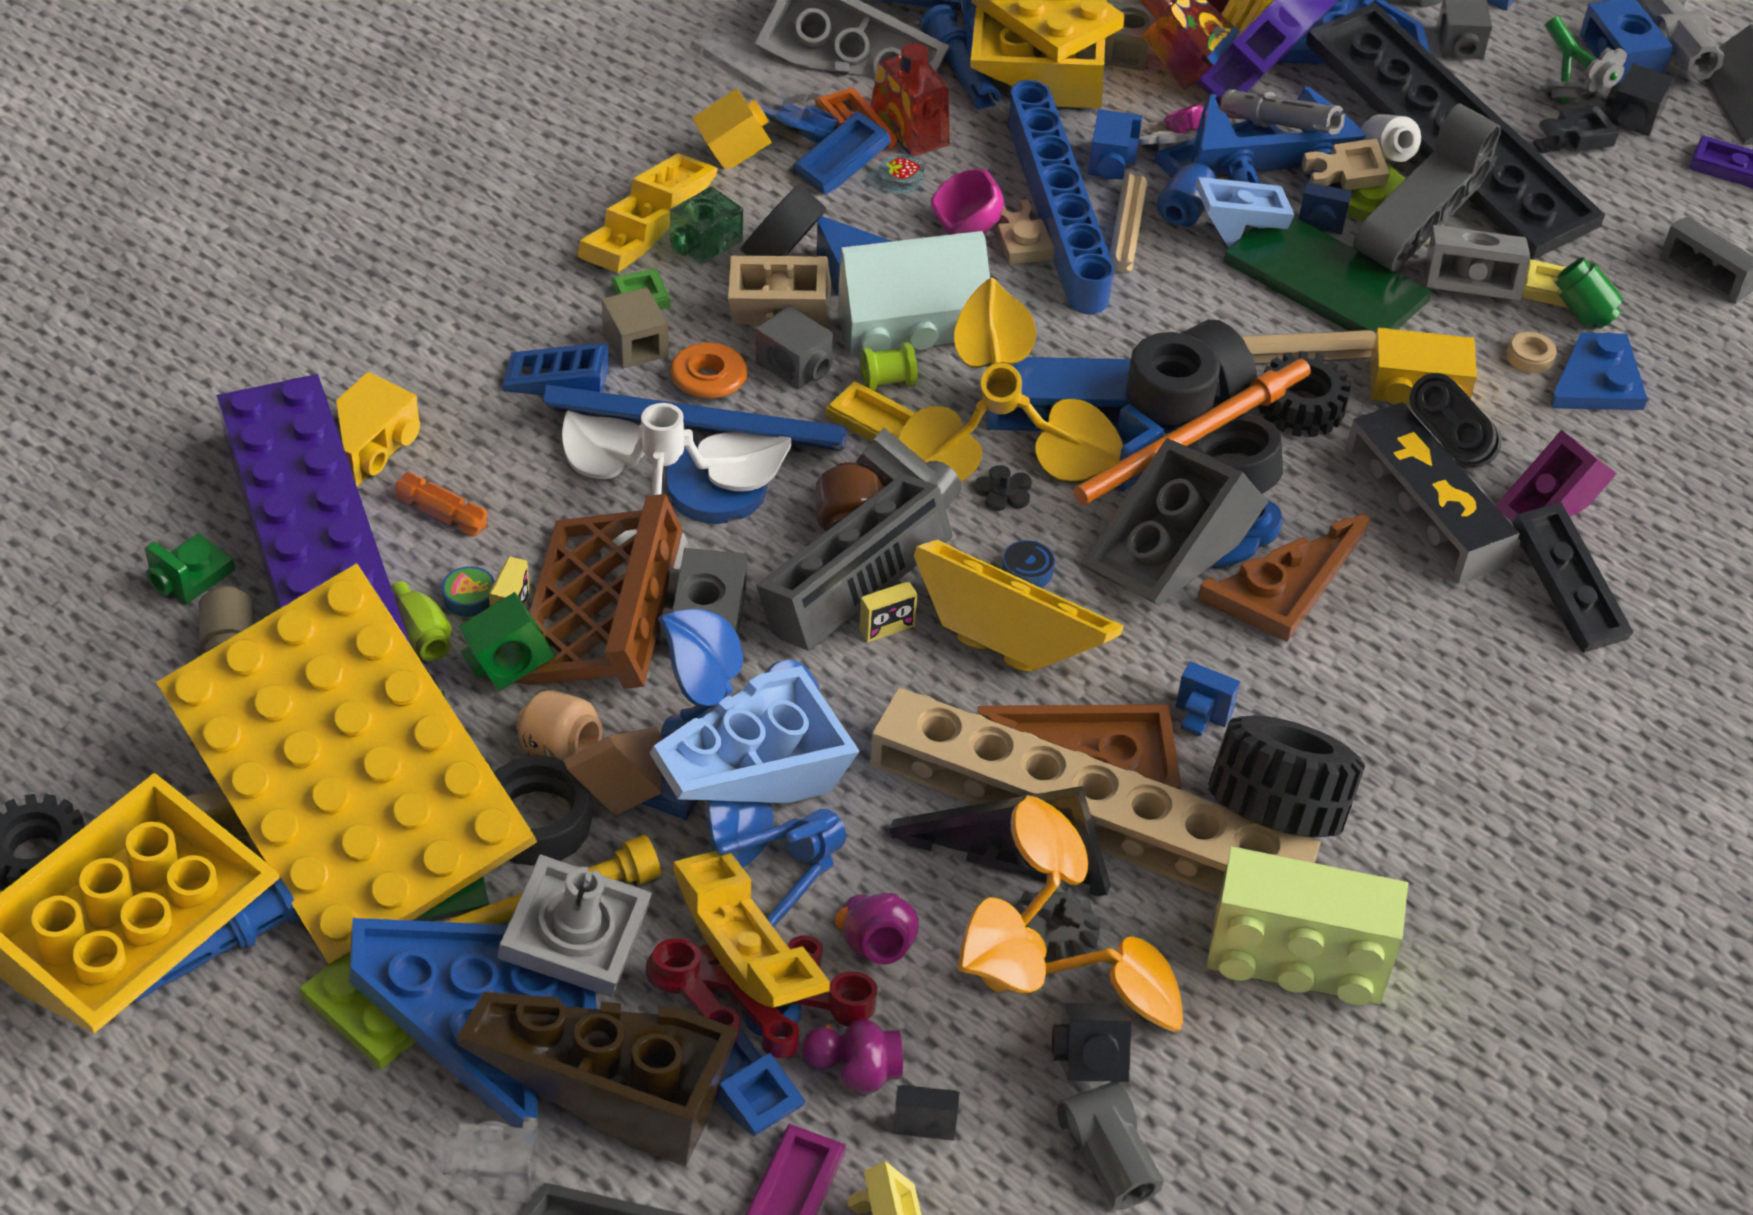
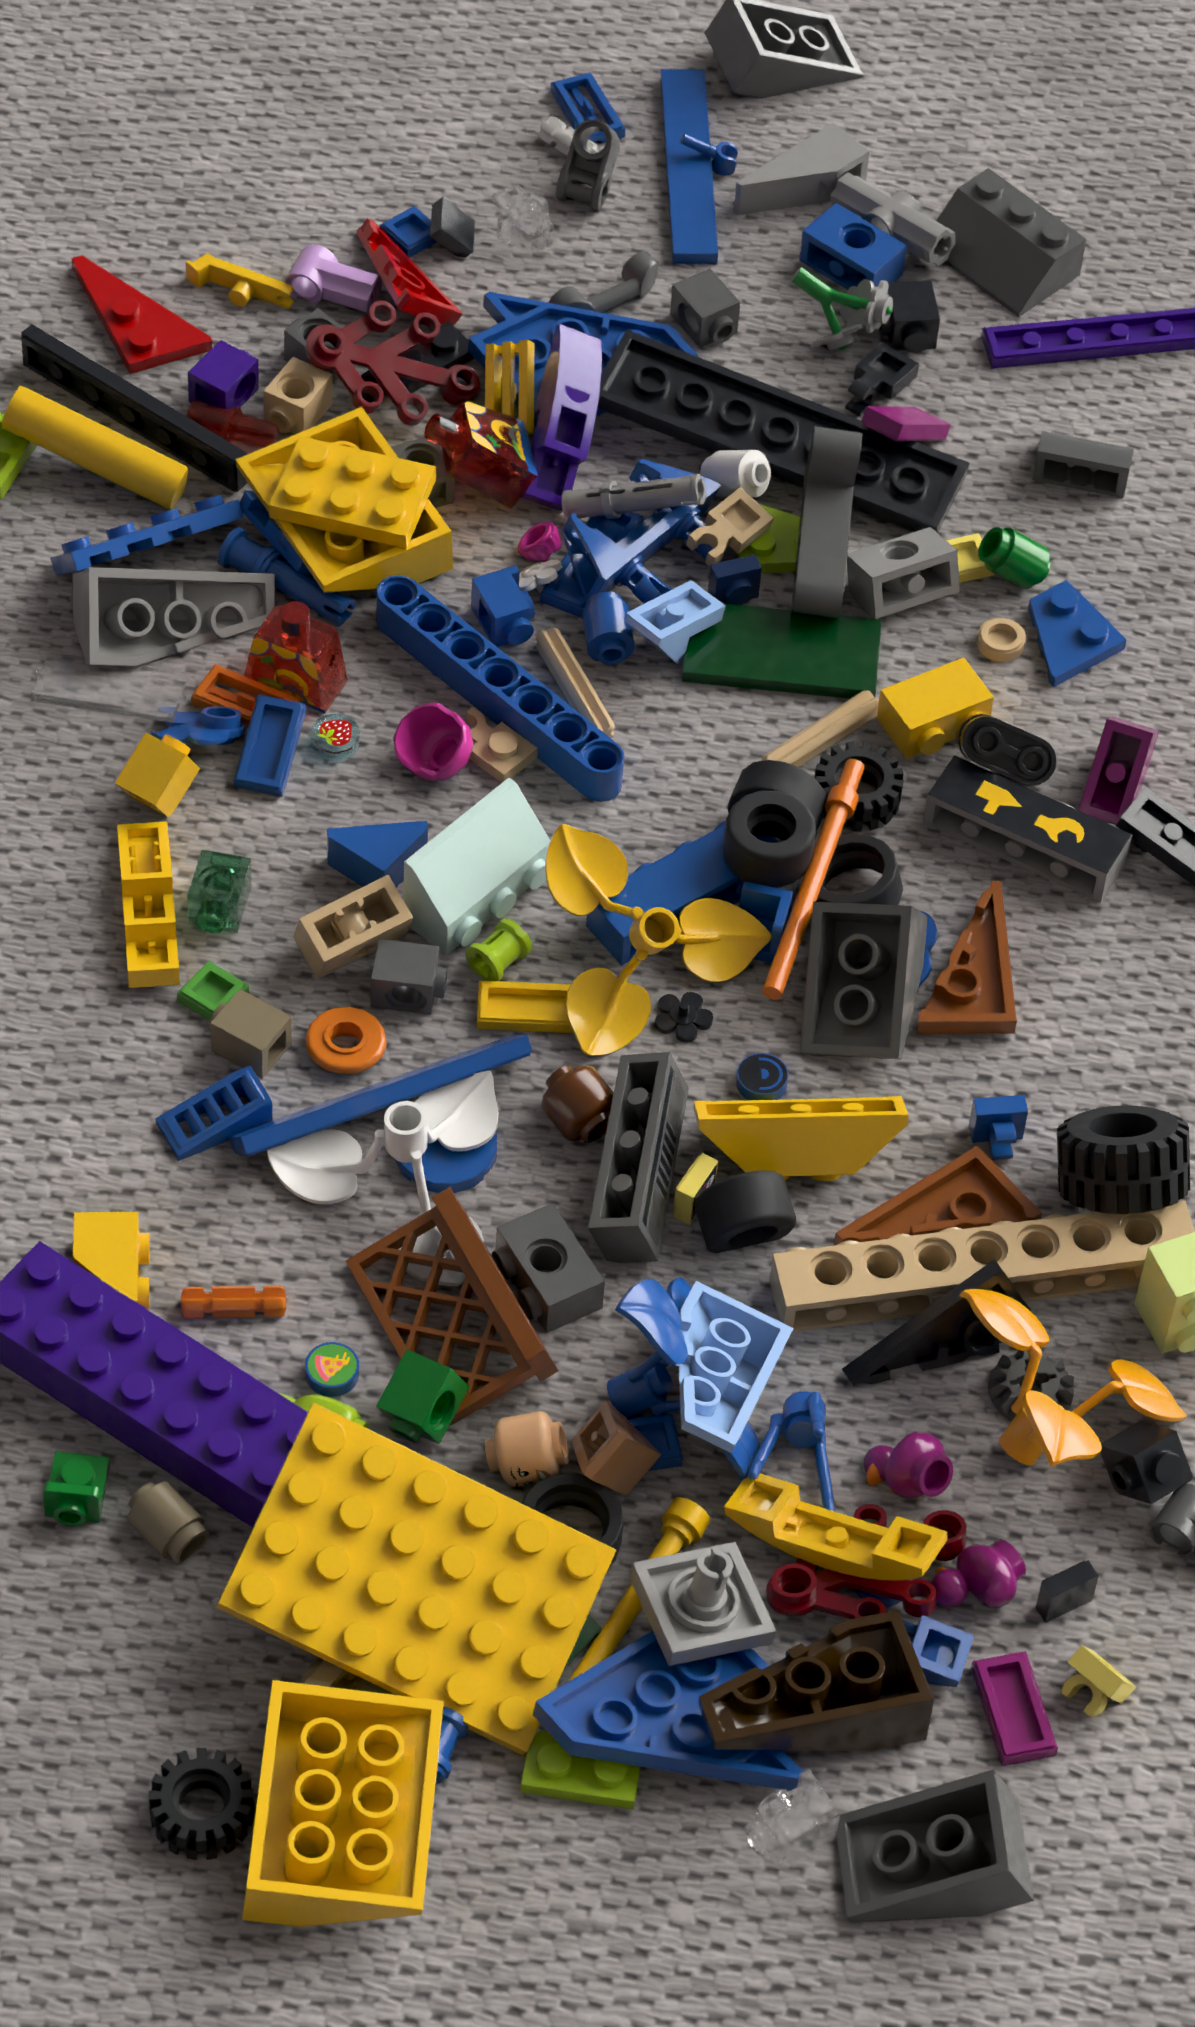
camera: 35 degrees left, 5 degrees up
(511, 579) = (376, 1351): light yellow tile -> none
(785, 224) = (304, 861): black tyre -> none
(892, 458) = (602, 1047): dark grey piece -> none
(910, 646) = (745, 1211): none -> black tyre
(1568, 163) = (905, 423): none -> magenta tile

